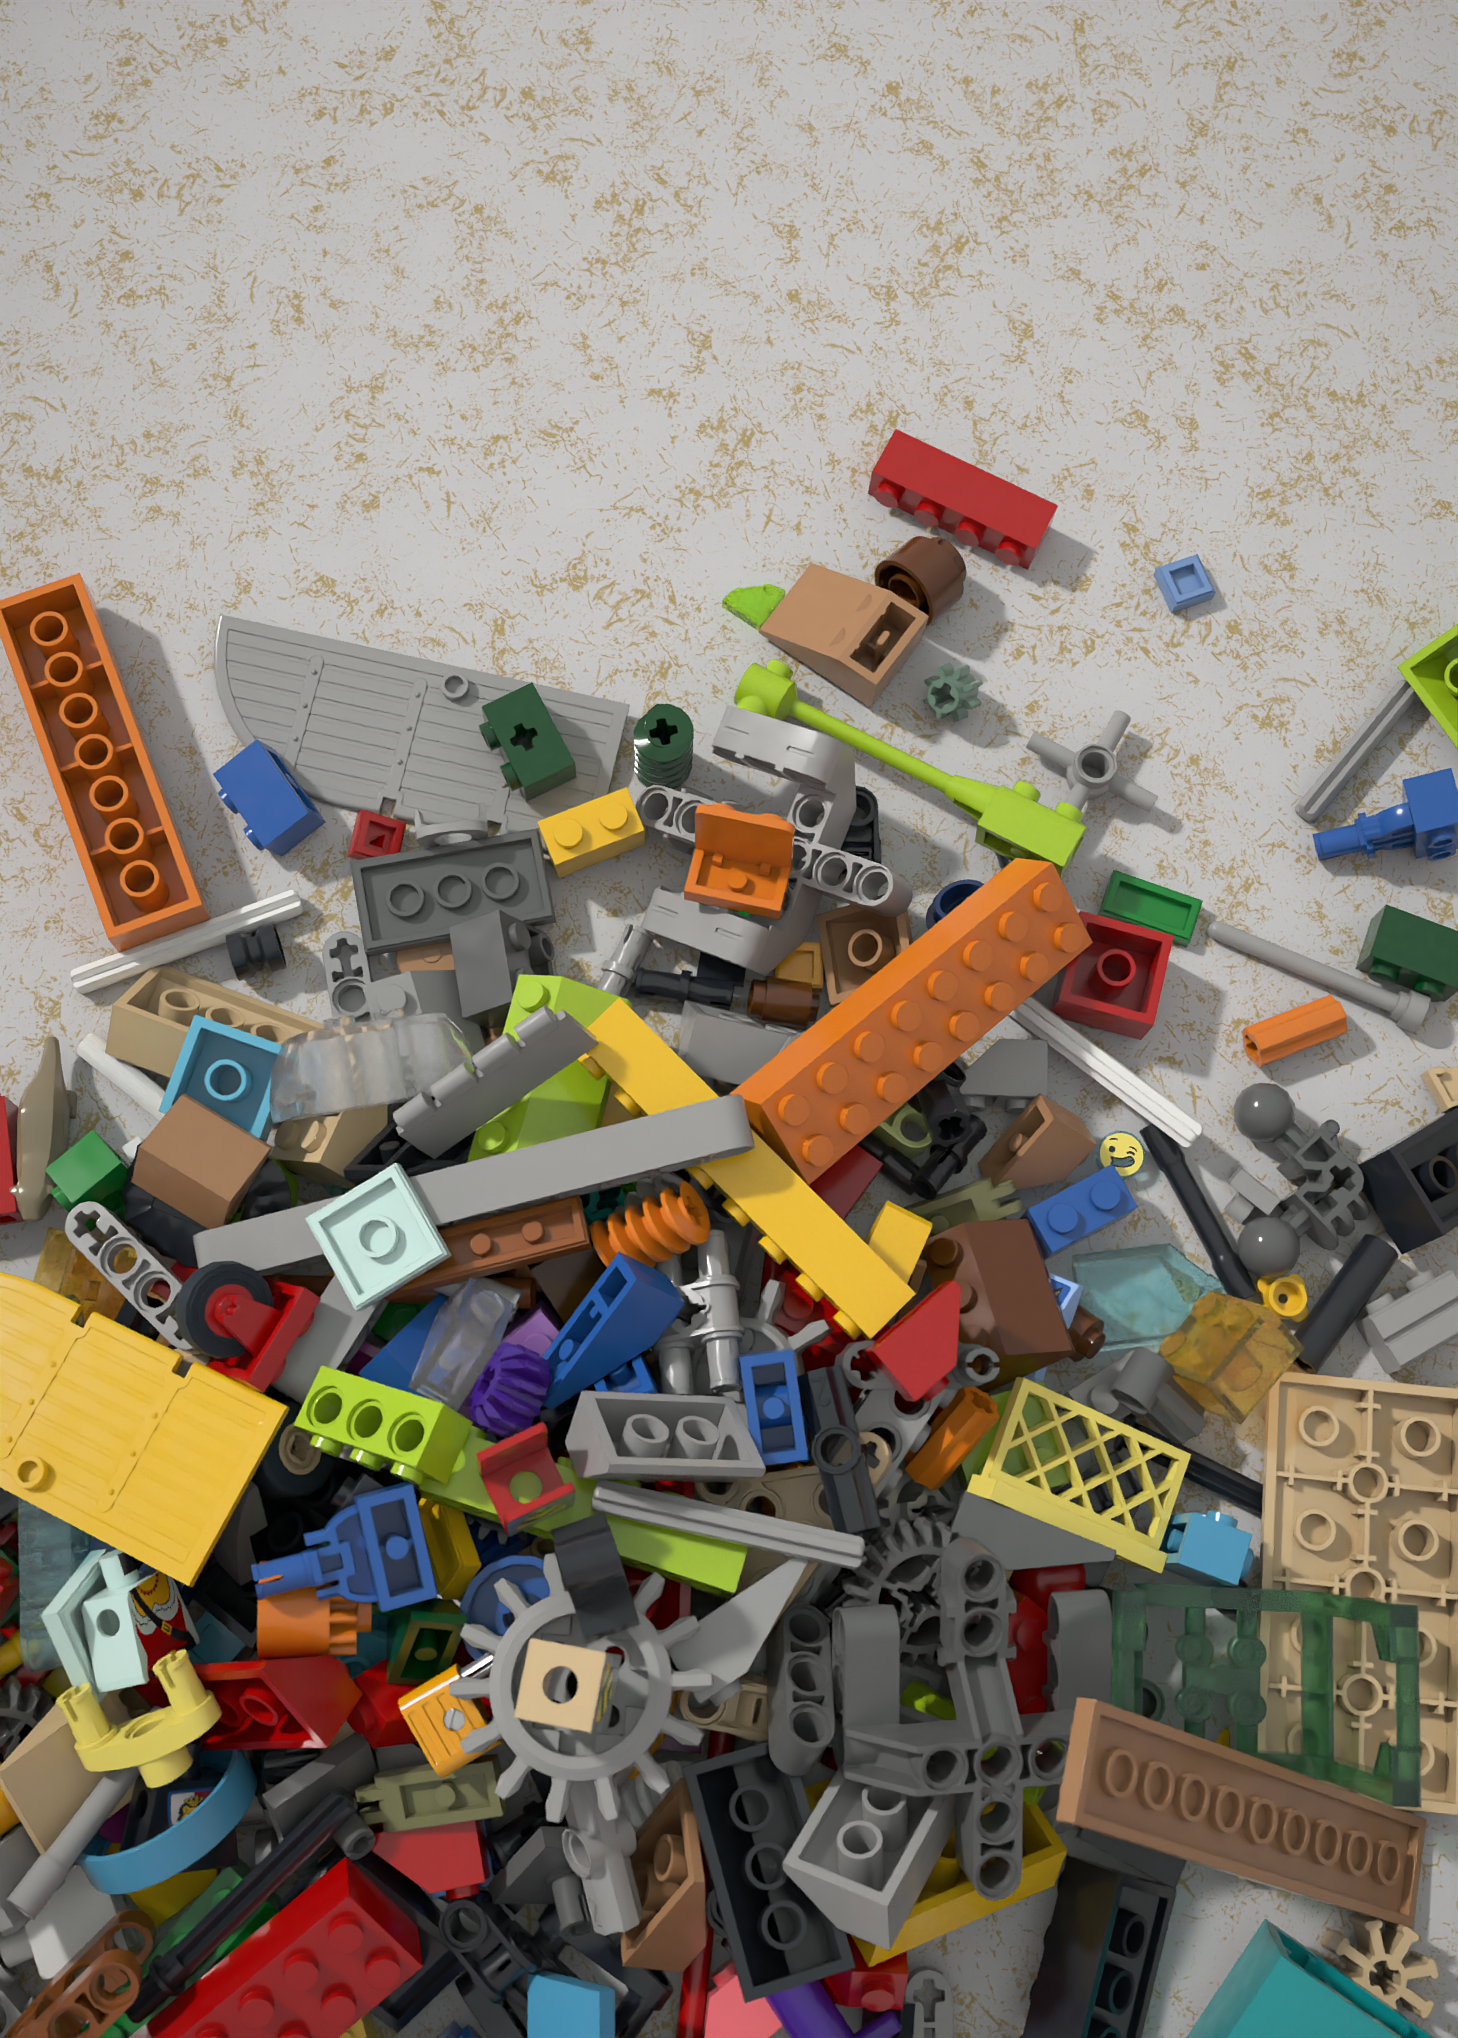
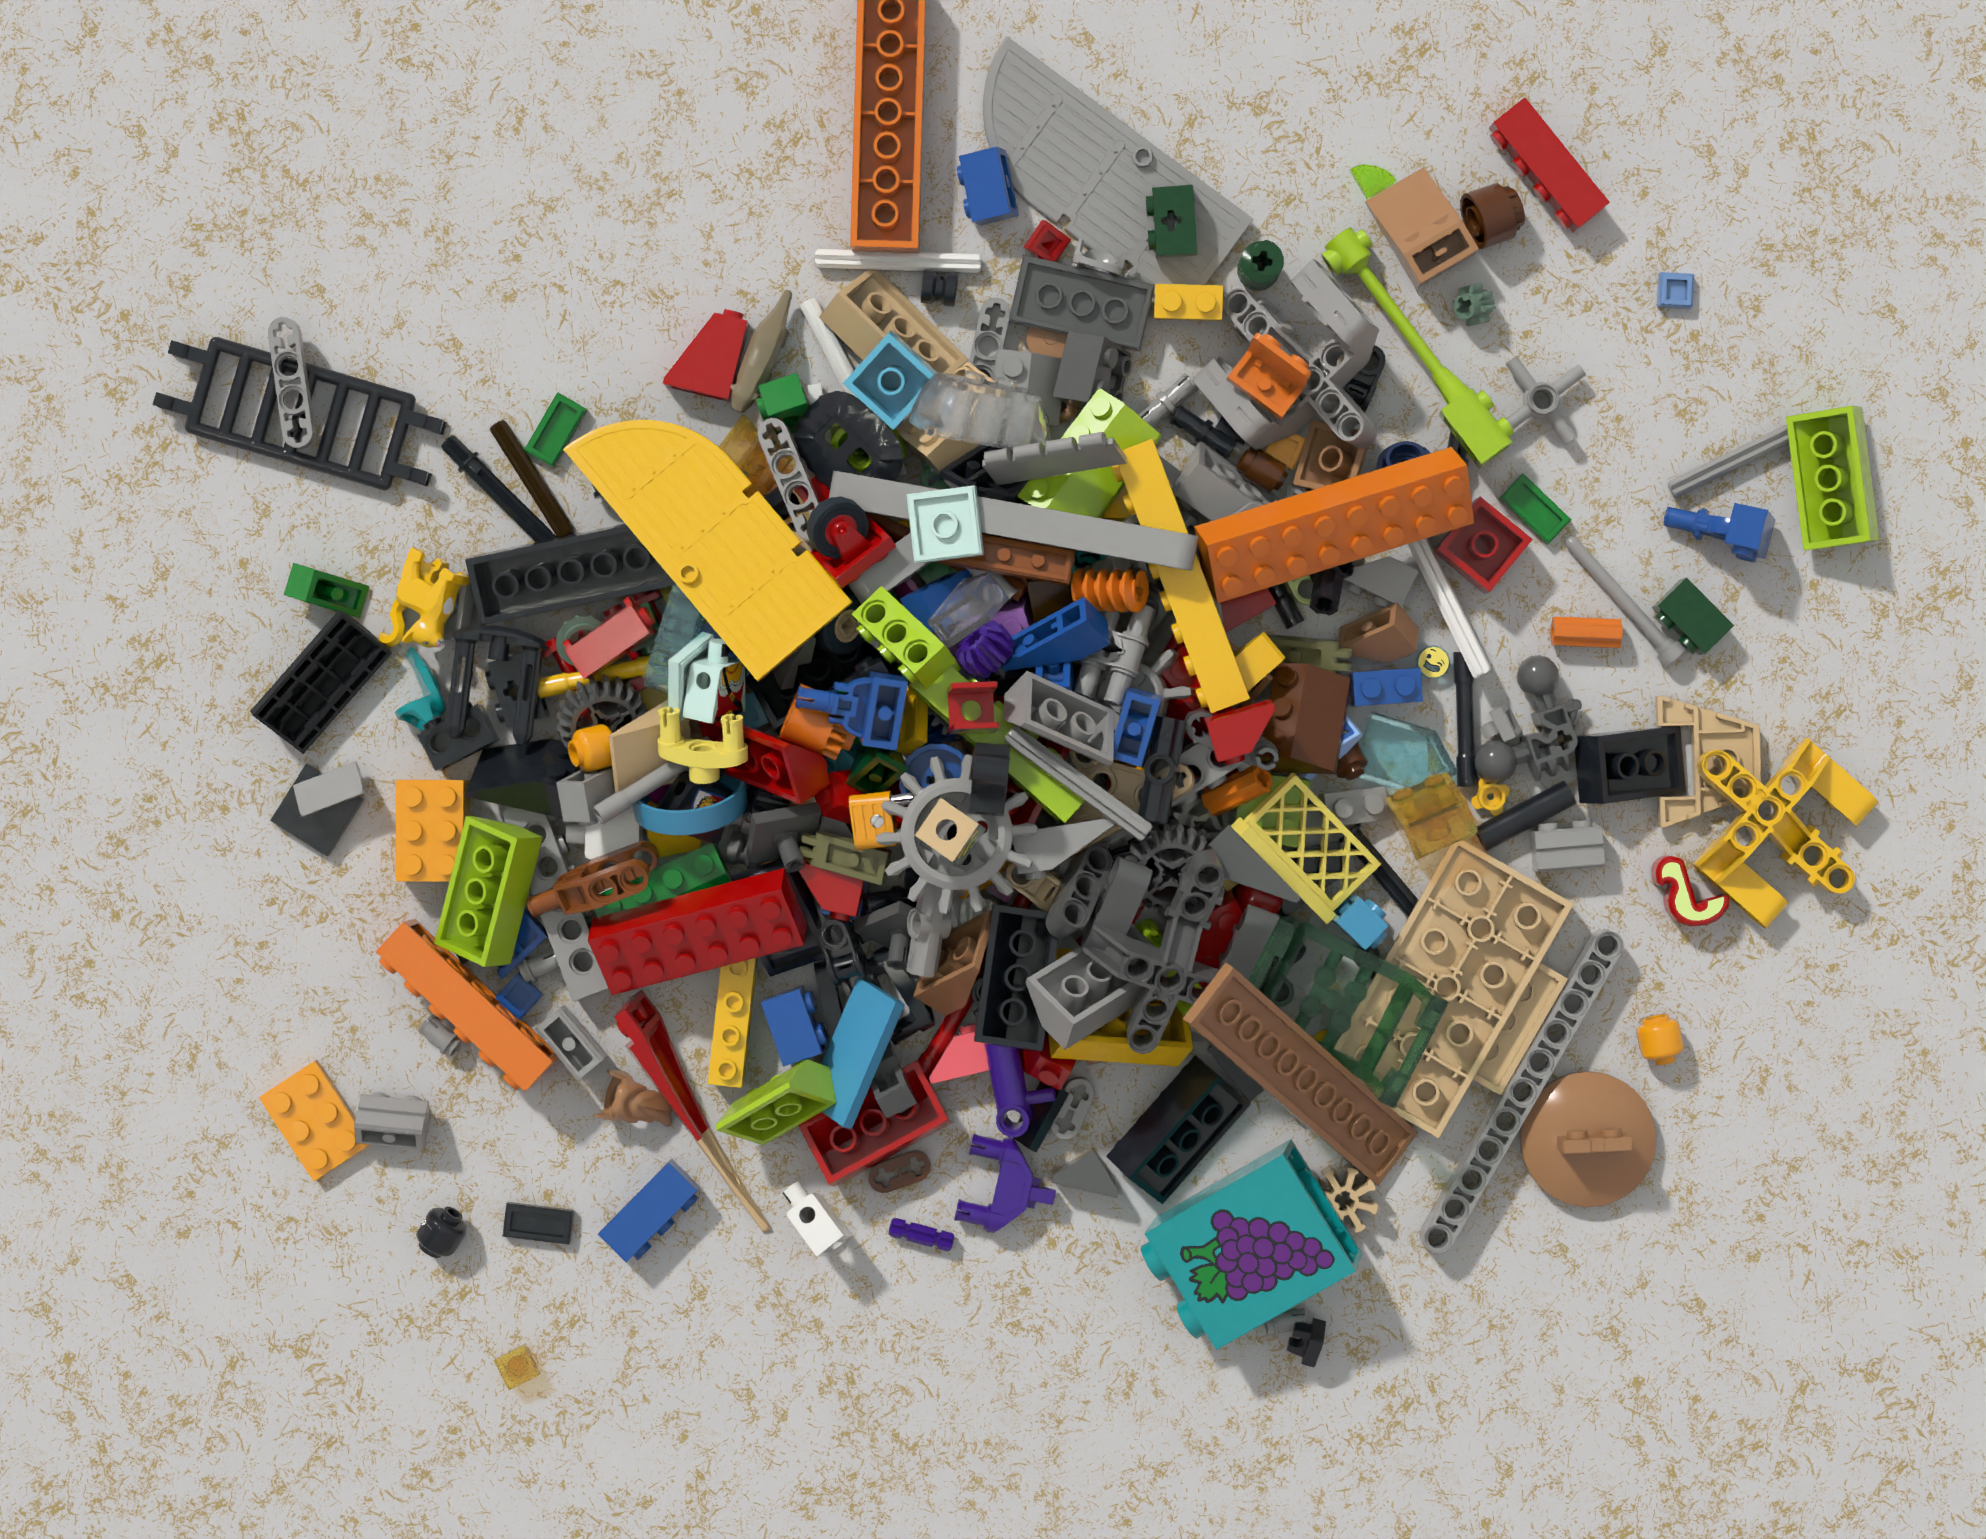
camera: 35 degrees right, 15 degrees up
(170, 1972) = (671, 882): black axle -> none
(199, 1162) = (856, 427): medium nougat slope -> none
(946, 1162) = (1311, 621): black pin -> none
(1150, 1390) = (1374, 816): dark grey piece -> none

